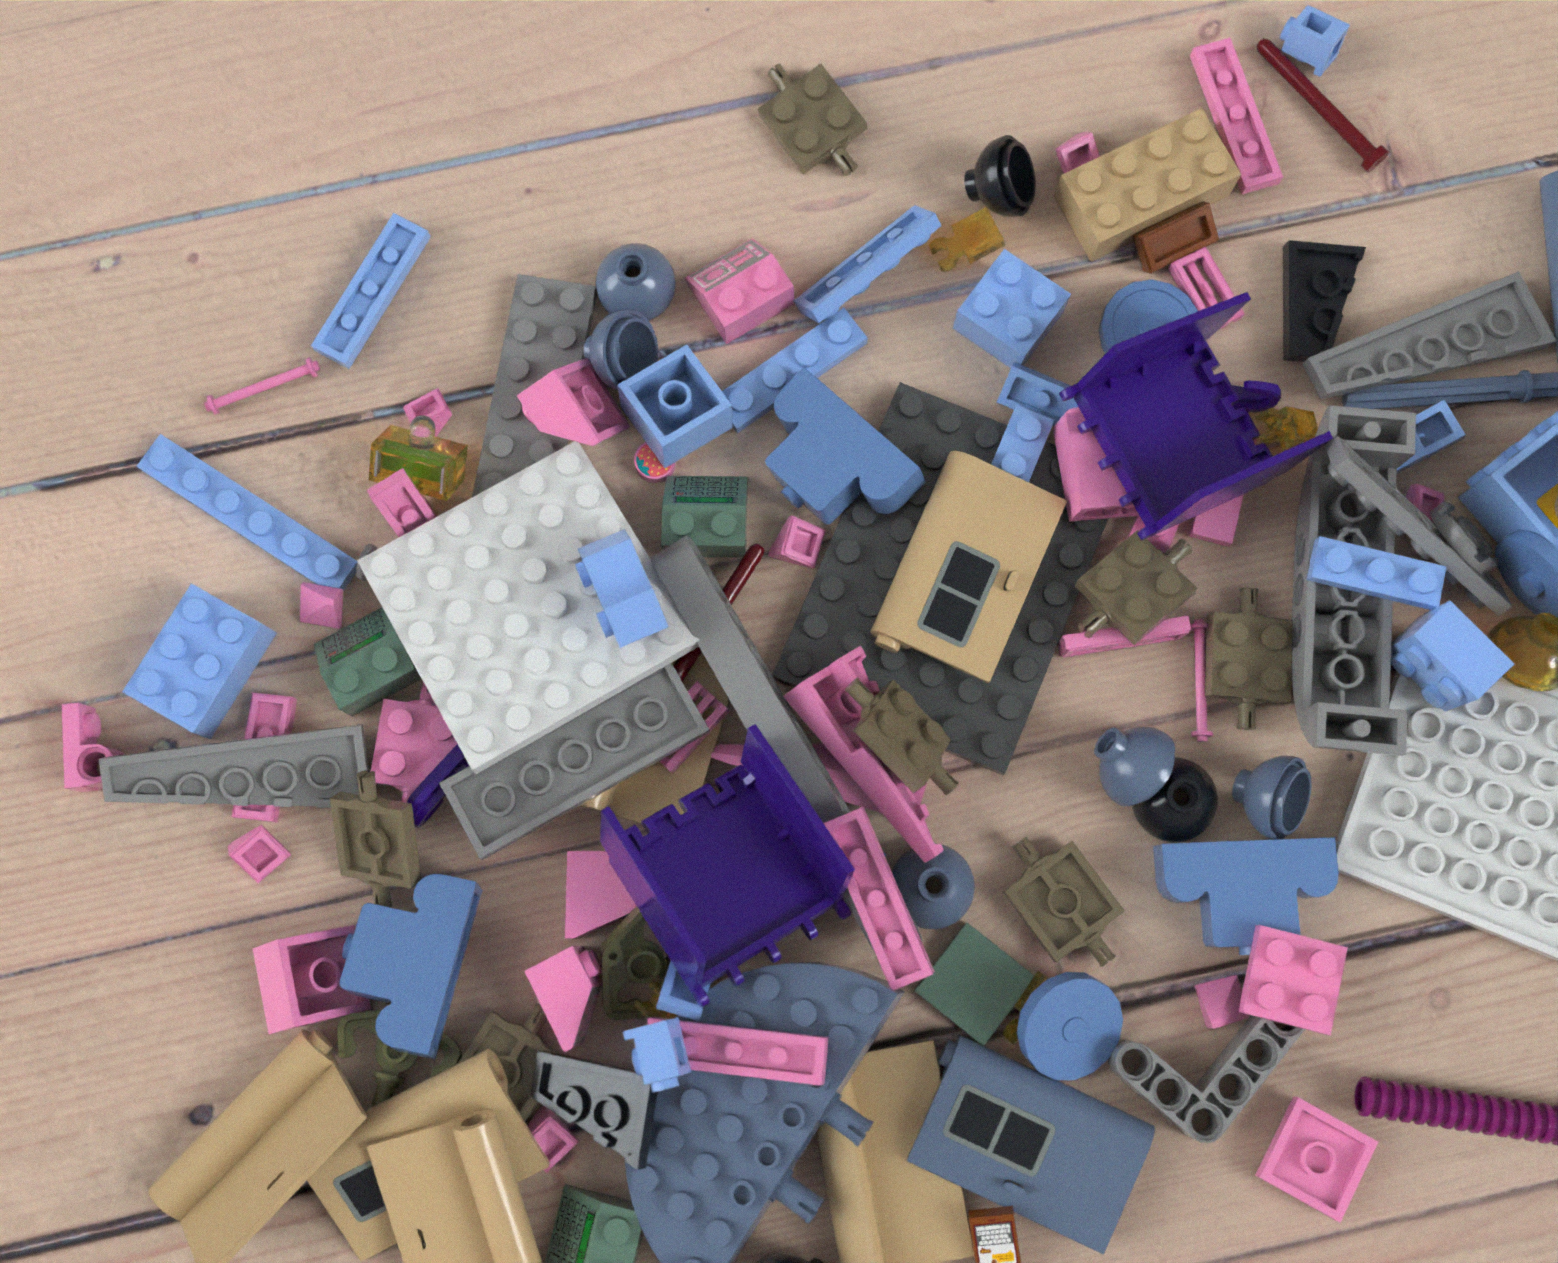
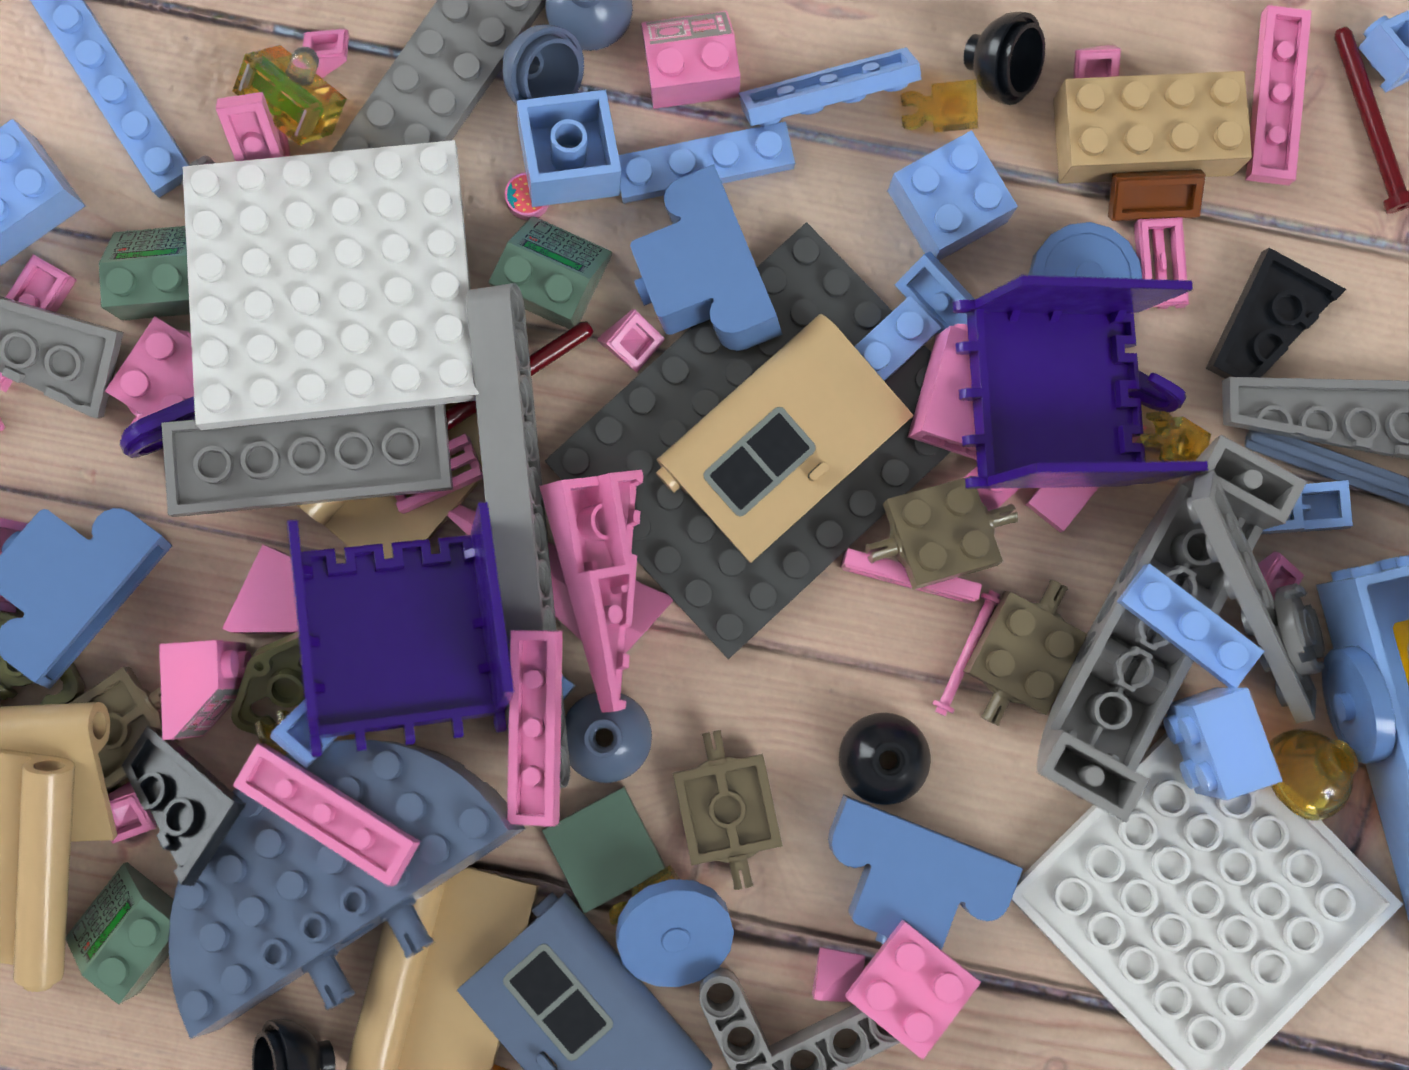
camera: 20 degrees right, 5 degrees up
(321, 605) = (136, 197): bright pink slope -> none
(375, 839) = (82, 451): dark tan plate -> none
(573, 405) = (466, 103): bright pink slope -> none
(622, 589) = (419, 308): light blue brick -> none
(659, 1053) = (247, 783): light blue brick -> none
(902, 735) = (637, 577): dark tan plate -> none
(1134, 763) = (858, 706): sand blue piece -> none
(1274, 795) = (984, 800): sand blue piece -> none

